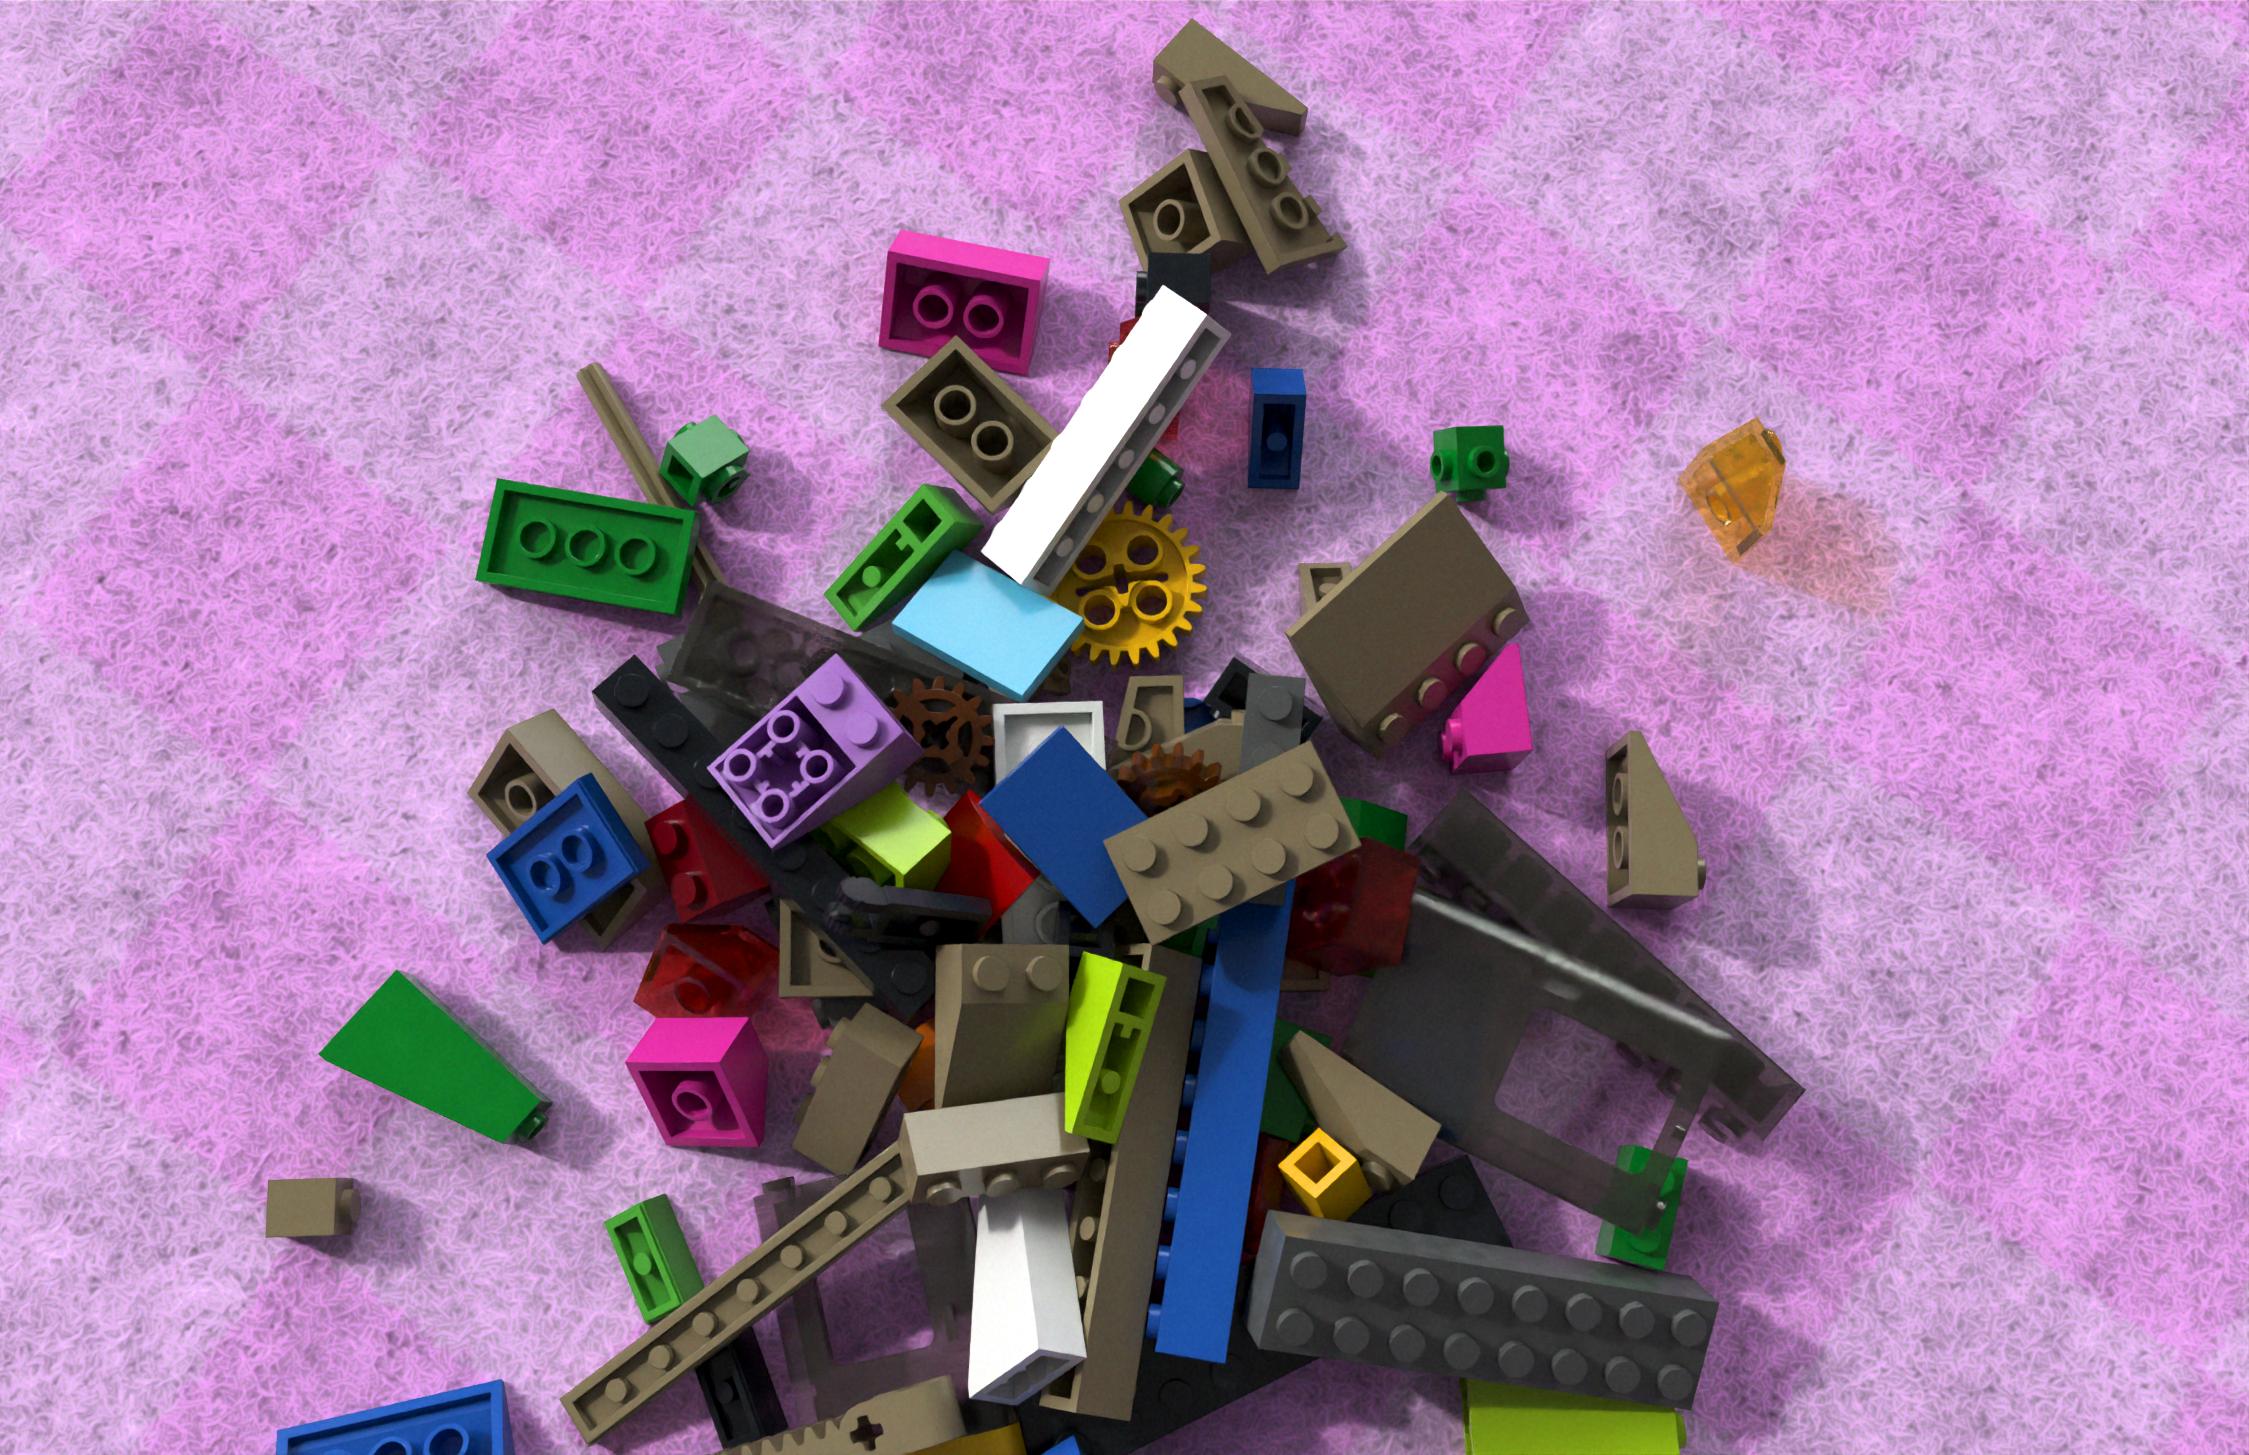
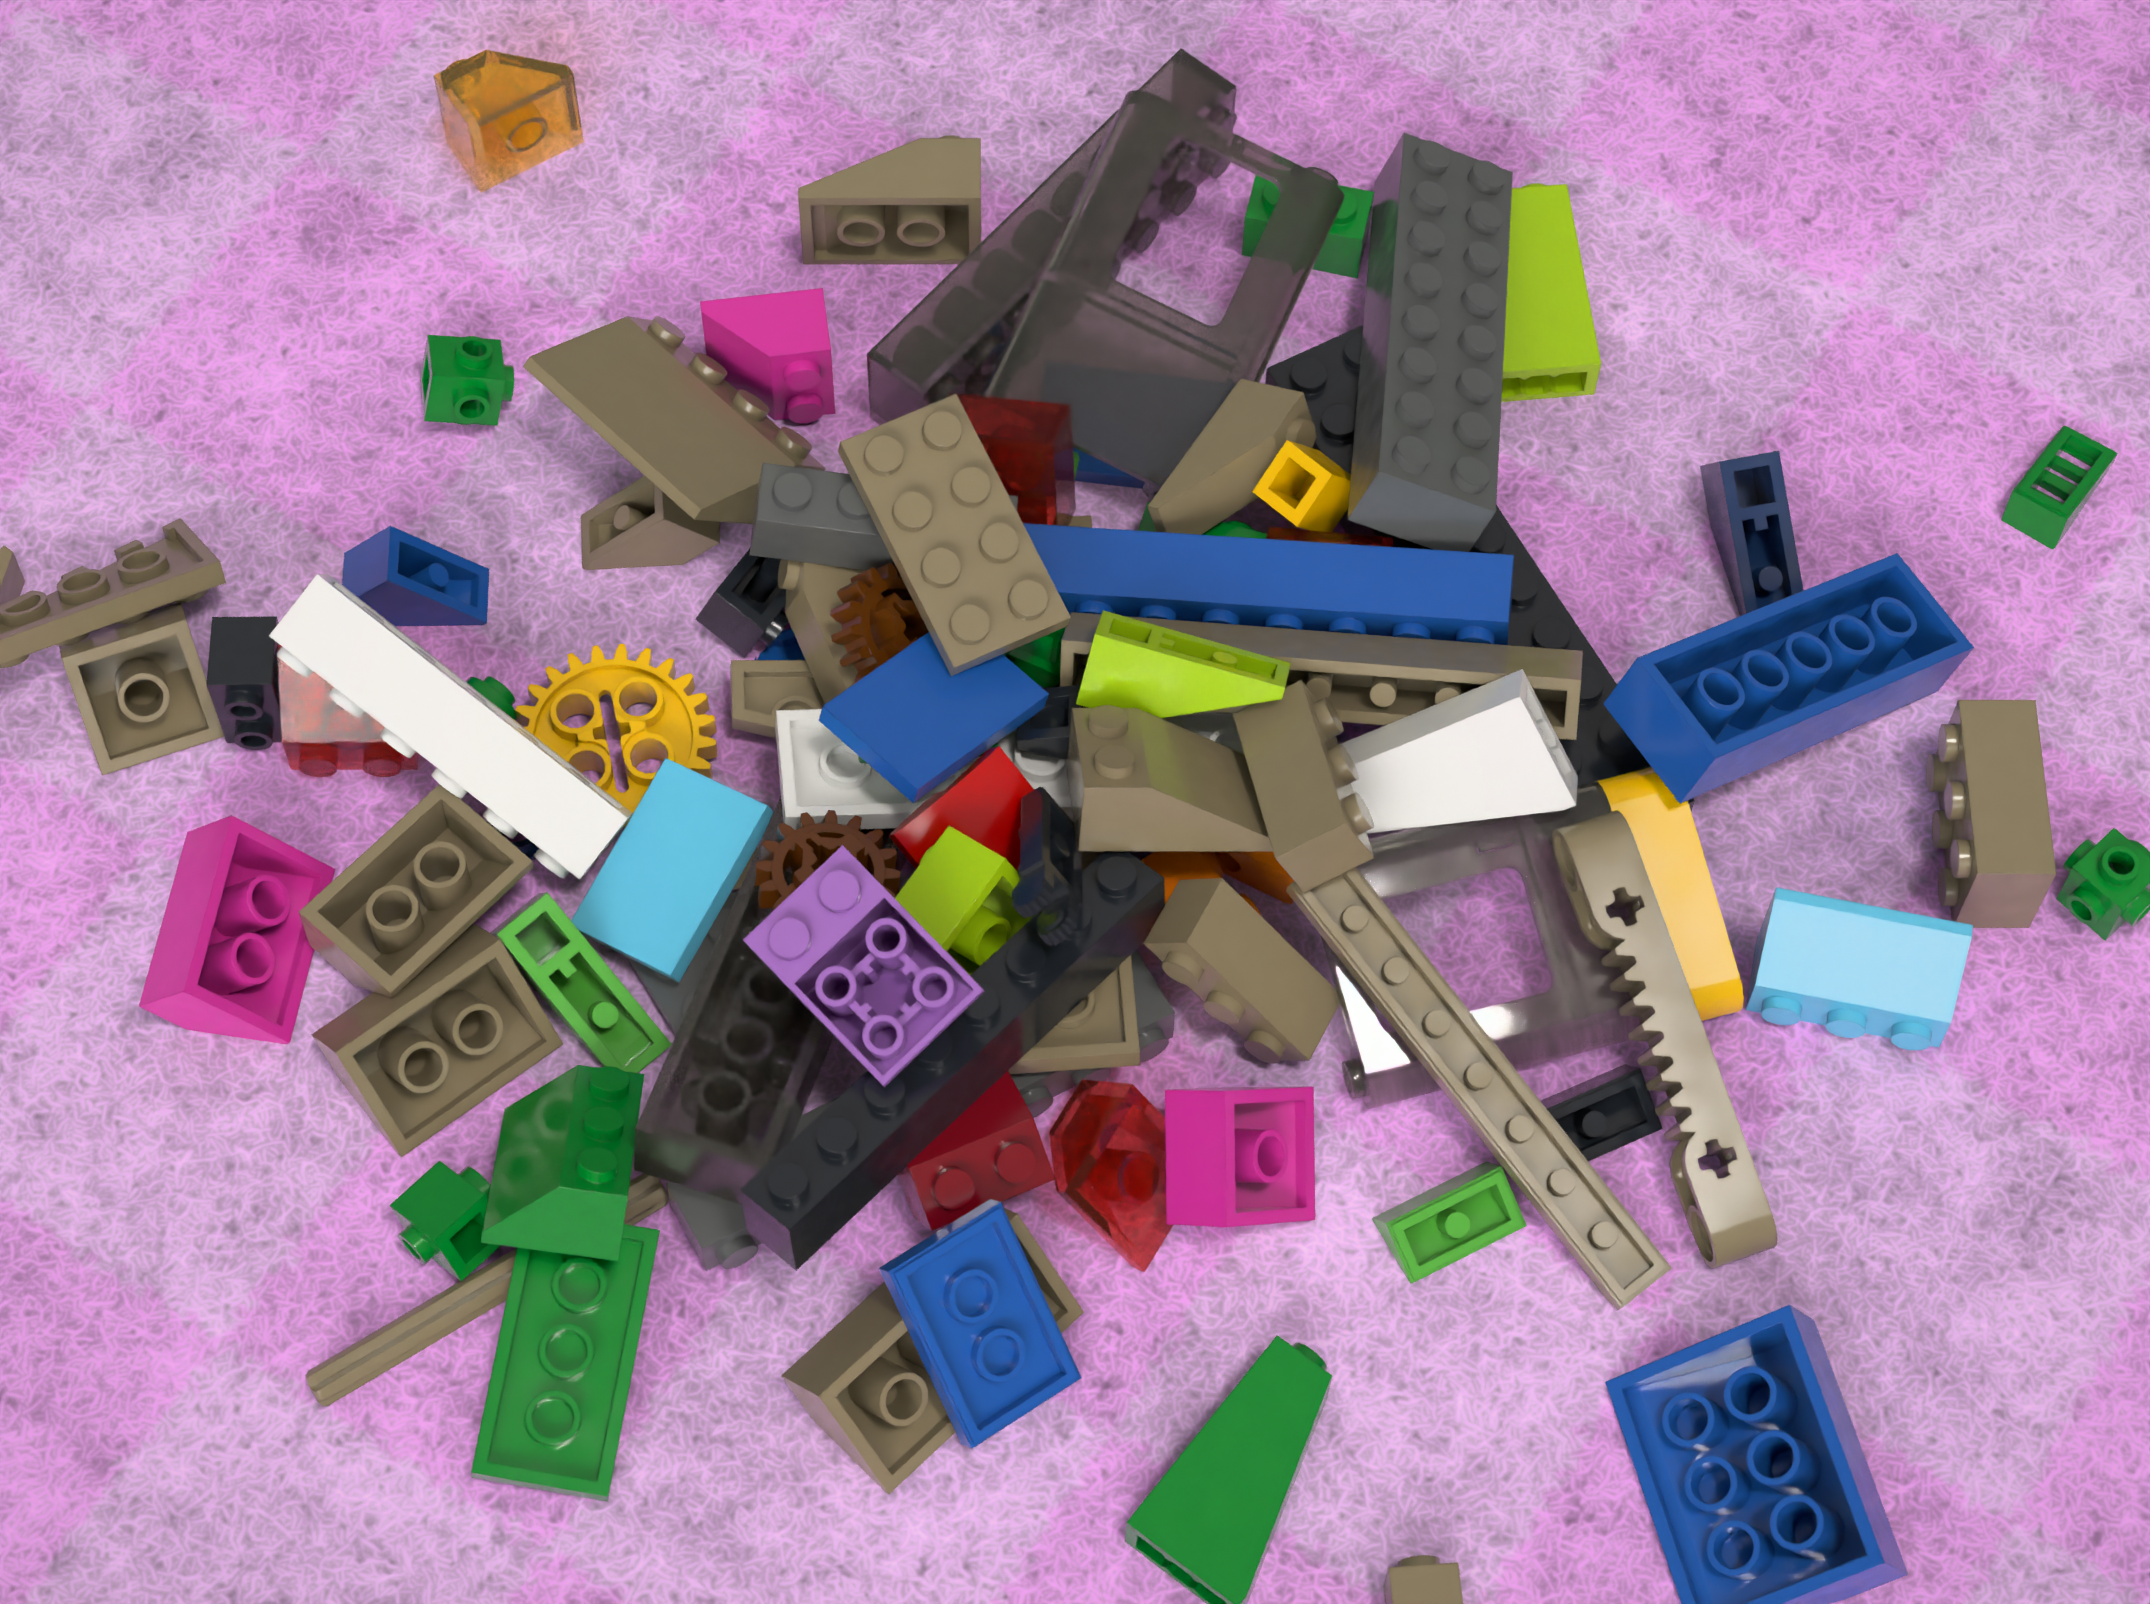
camera: 90 degrees left, 15 degrees down
(727, 536) = (566, 1165): none -> green slope
(857, 450) = (439, 1041): none -> dark tan slope

